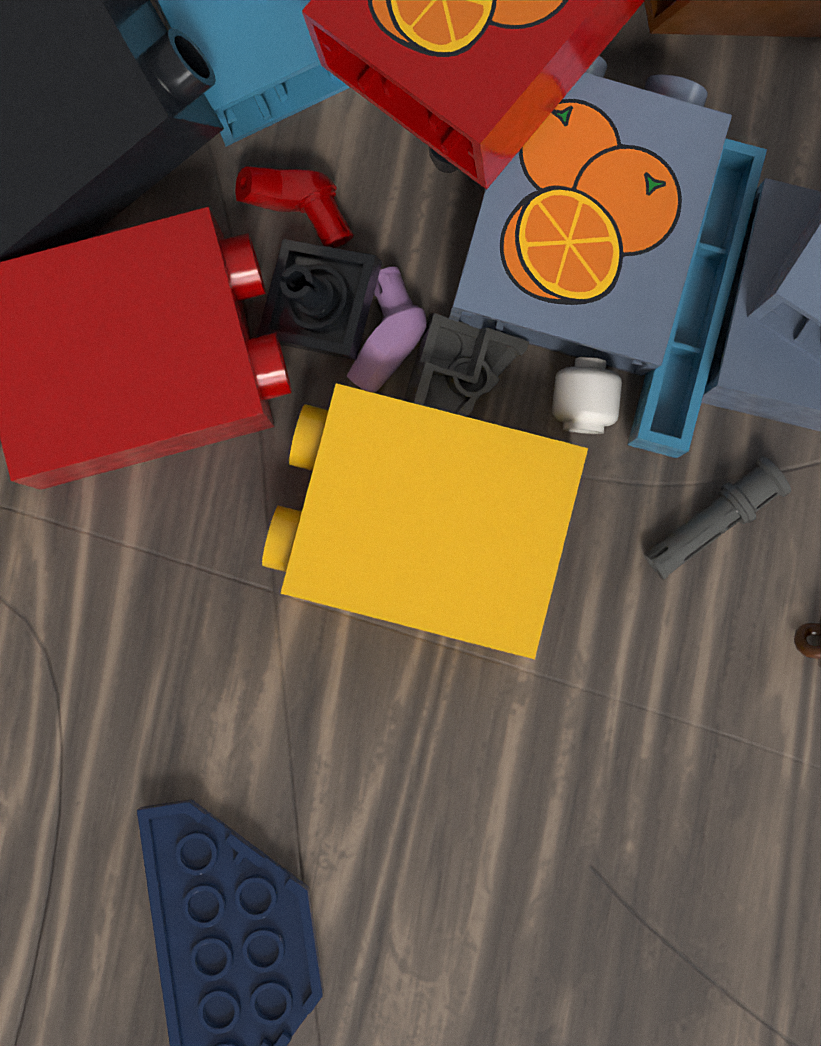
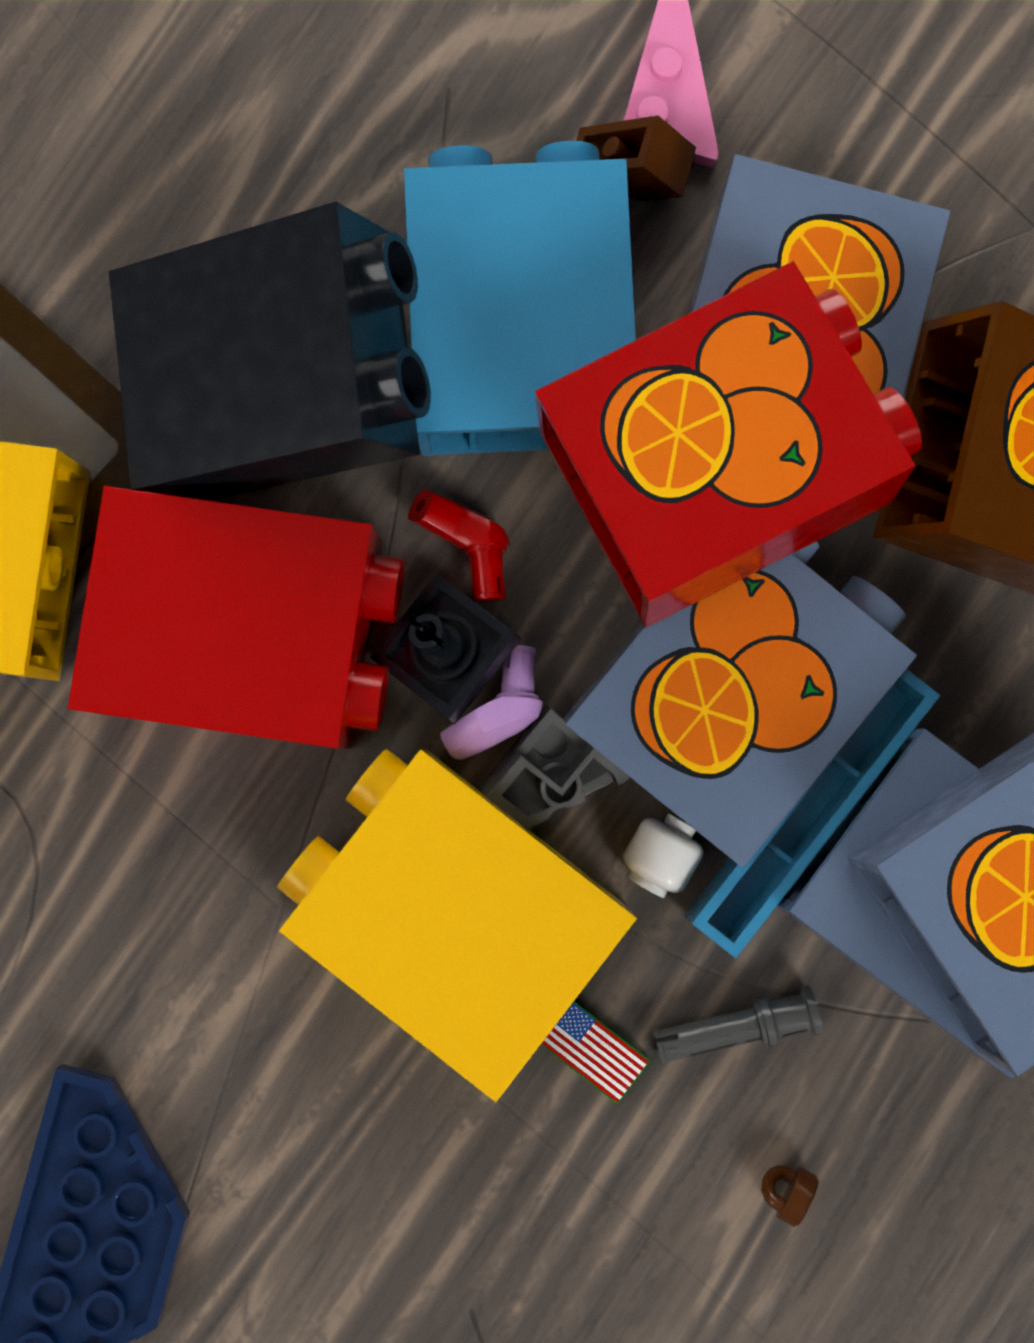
camera: 20 degrees right, 0 degrees up
(600, 593) = (596, 1052): none -> tile

